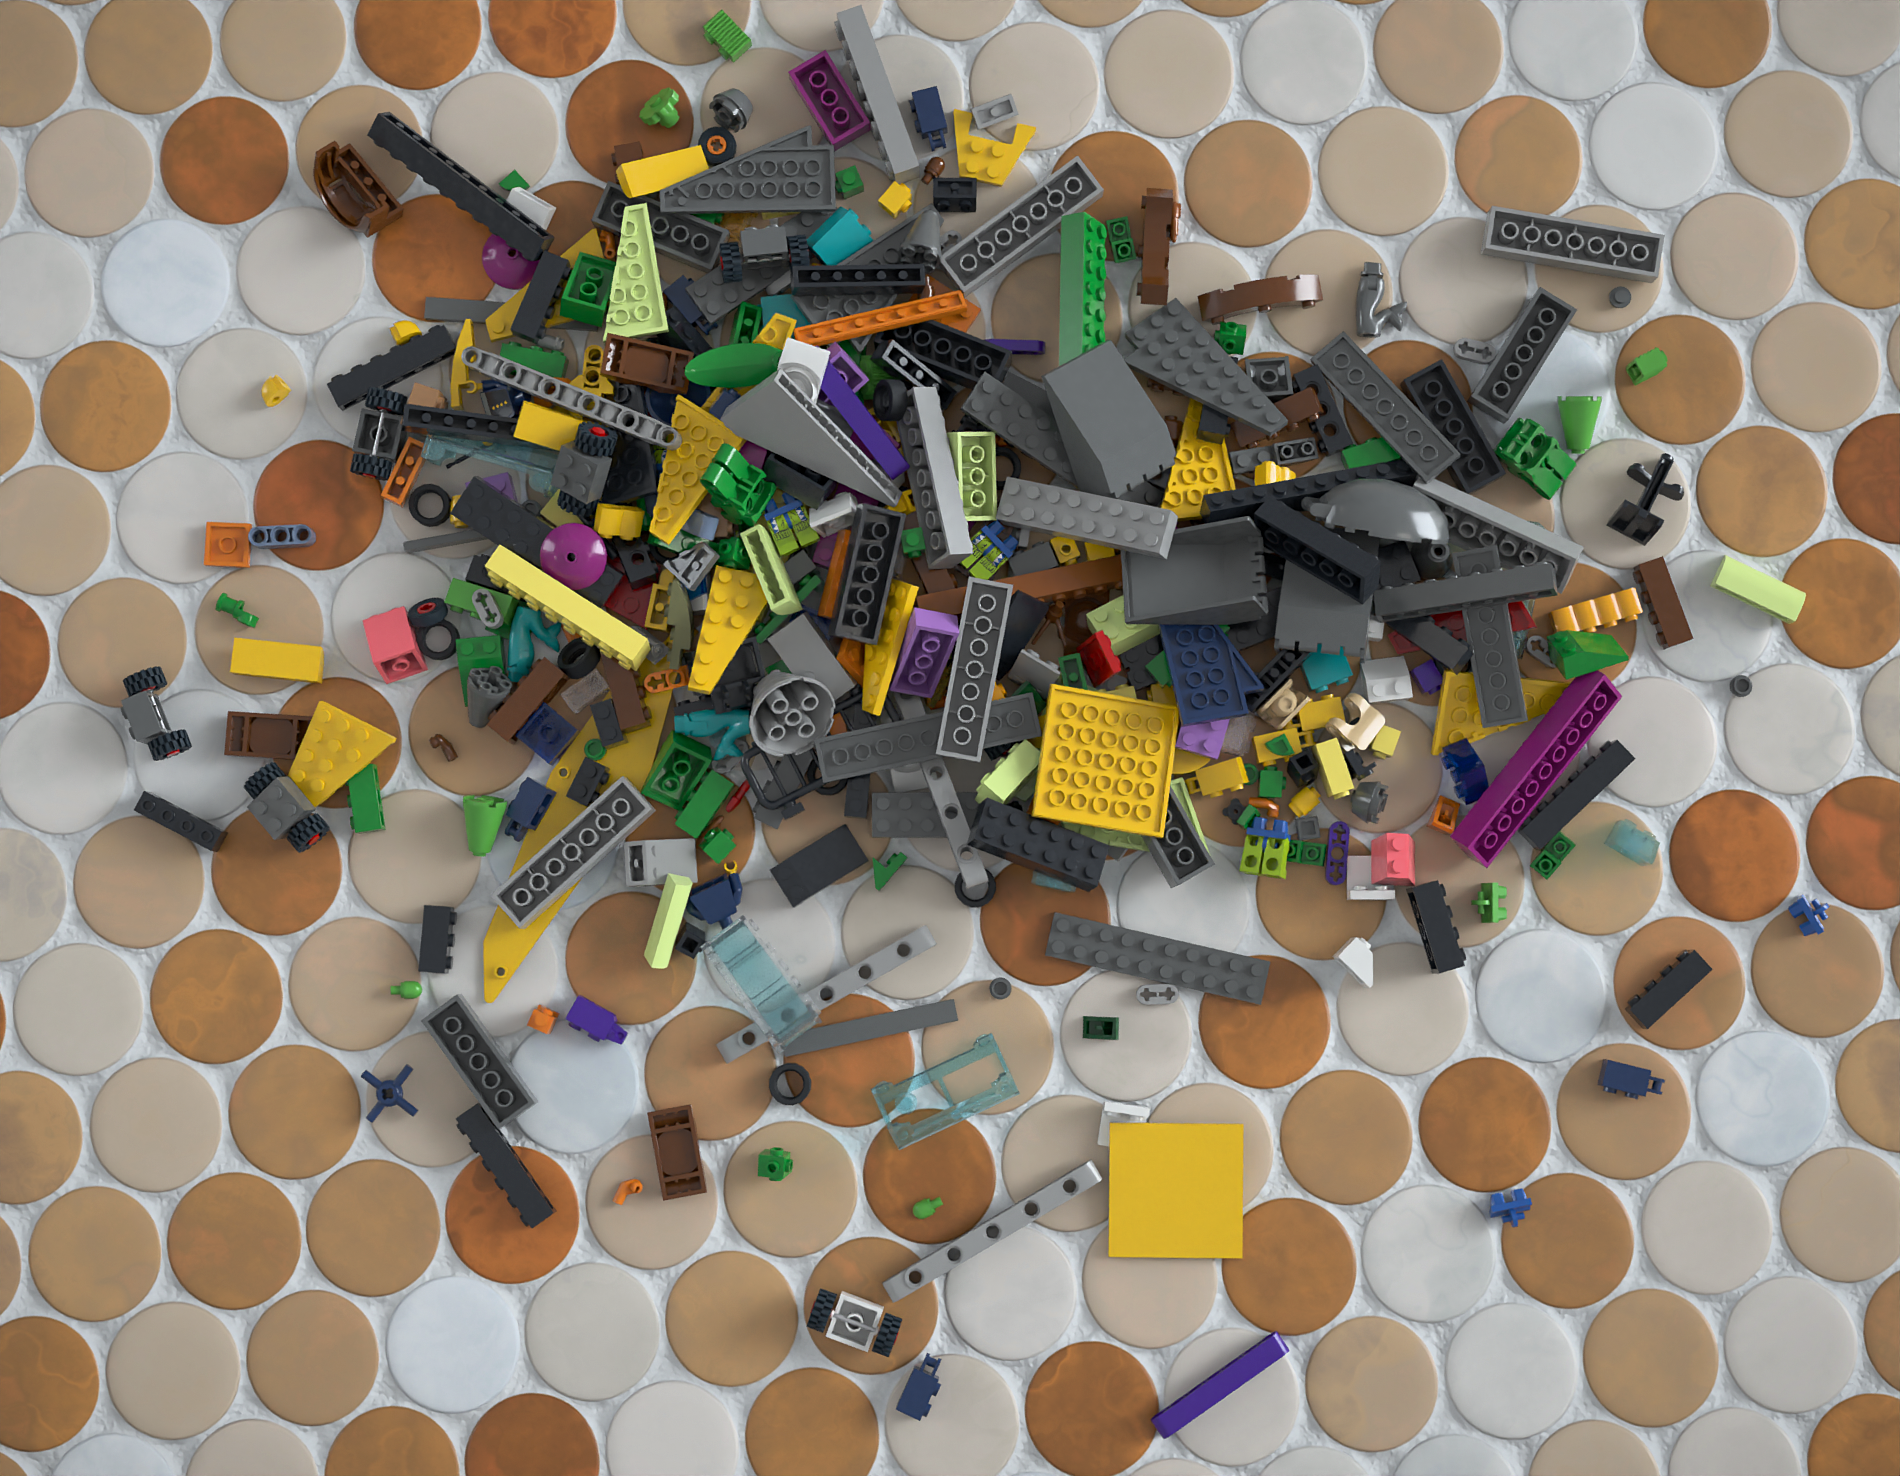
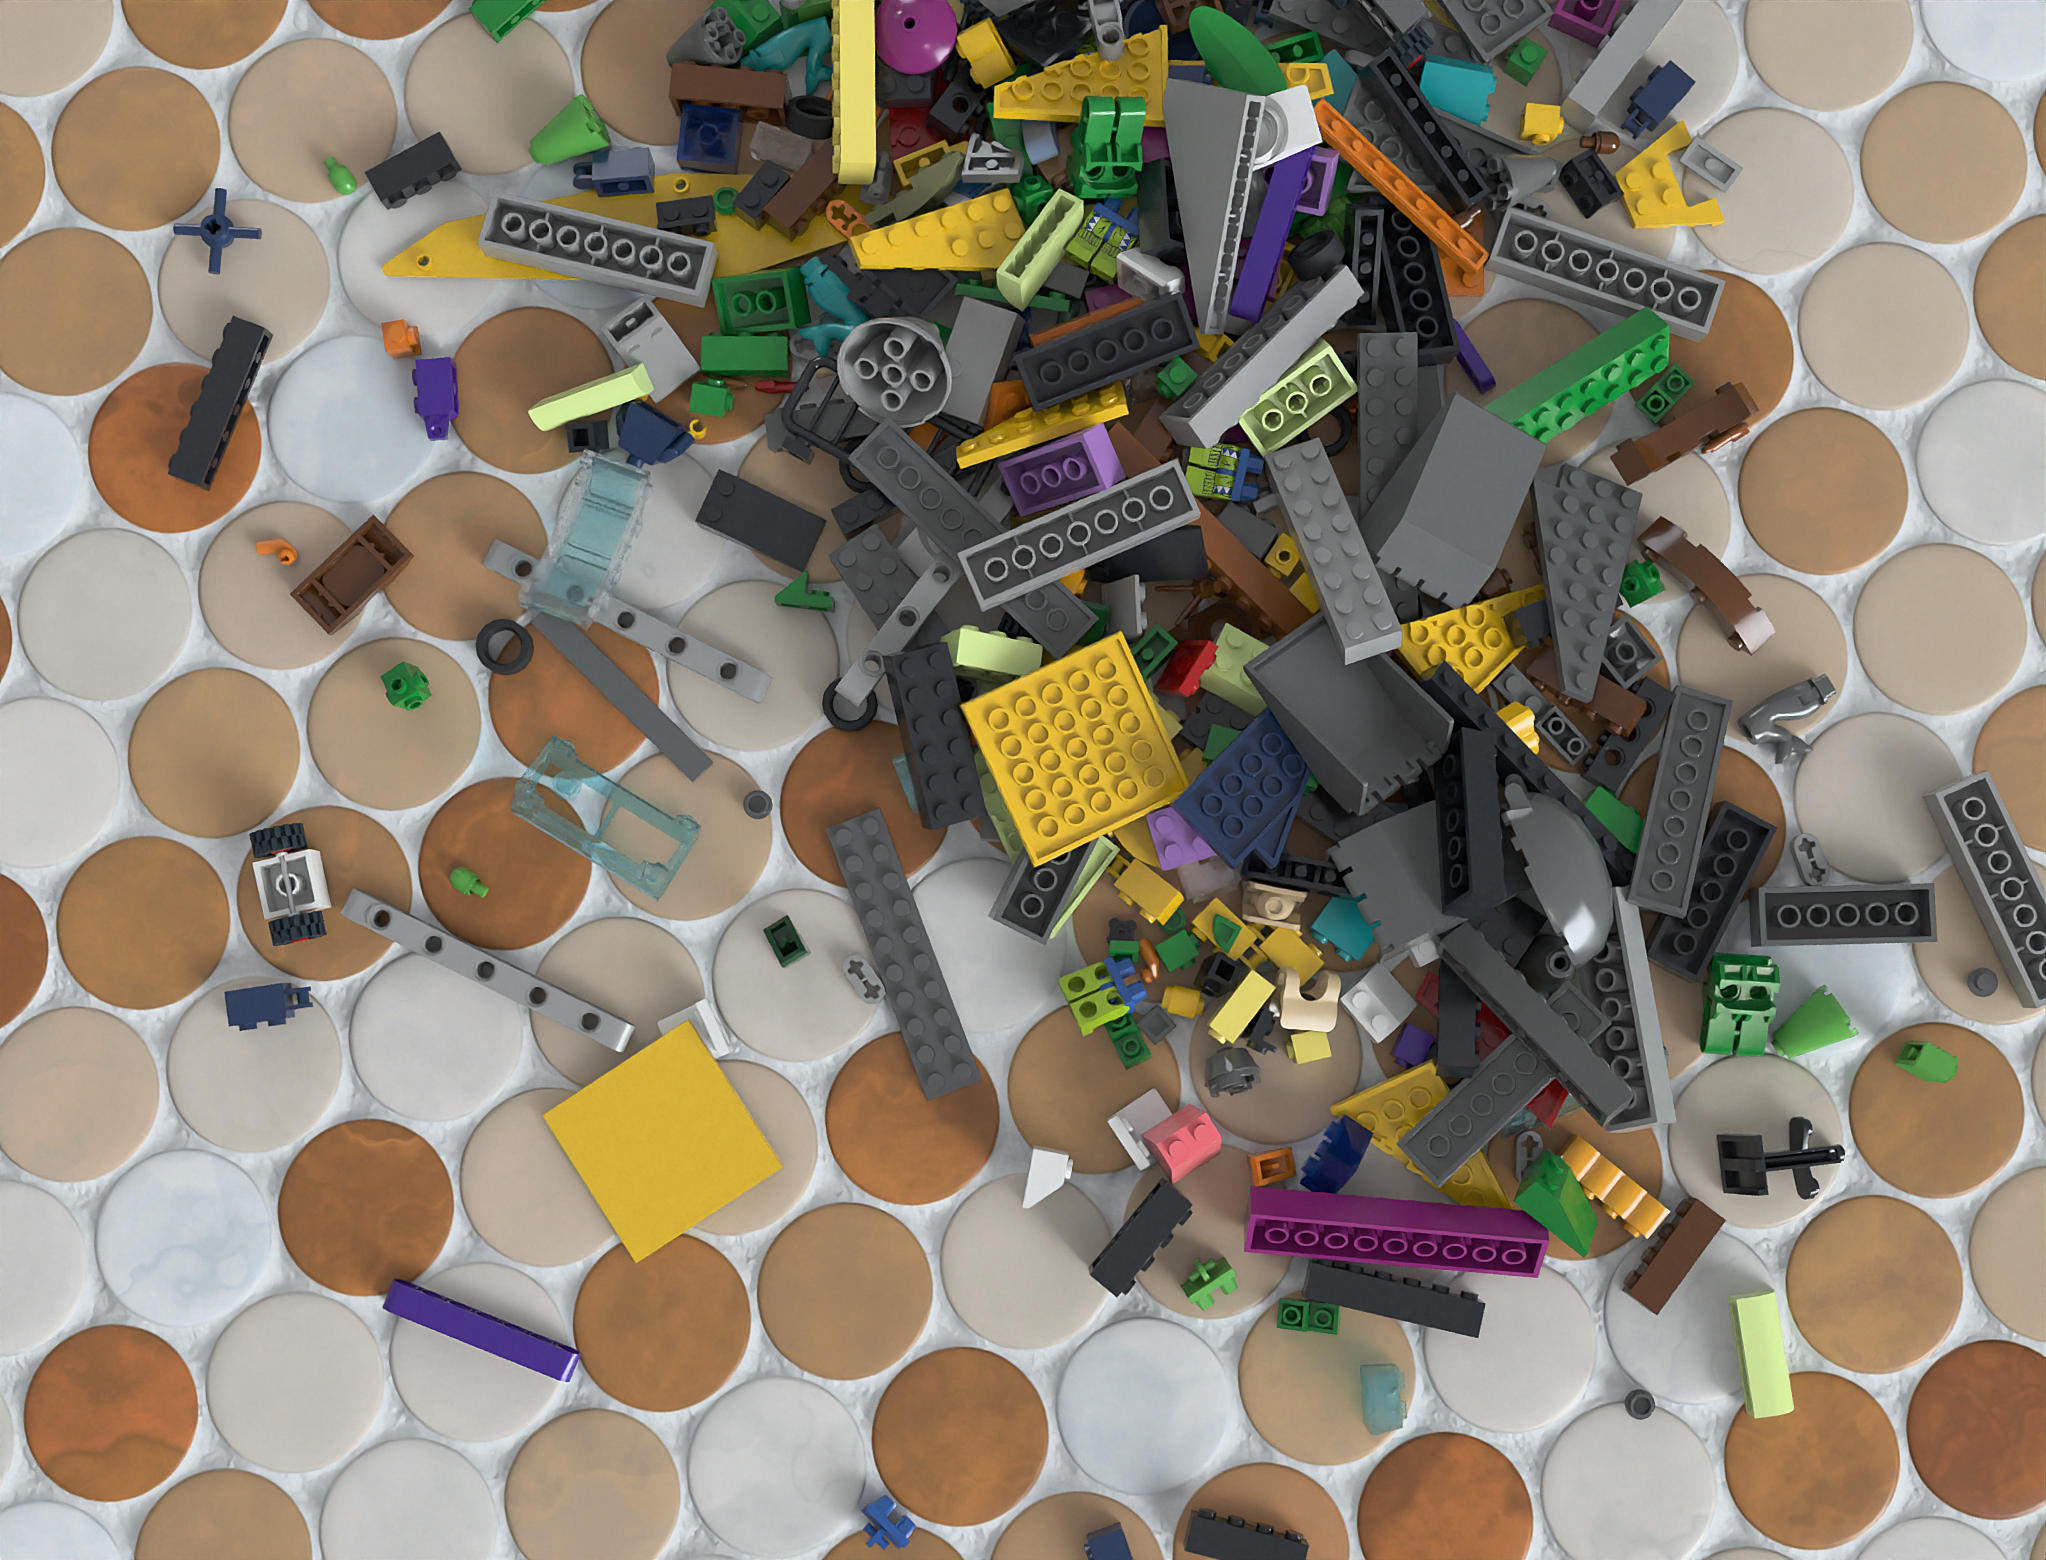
camera: 55 degrees right, 0 degrees up
(446, 746) = (627, 44): reddish brown arm -> none
(479, 1061) = (311, 301): dark grey brick -> none
(1333, 836) = (1135, 1093): dark purple beam -> none

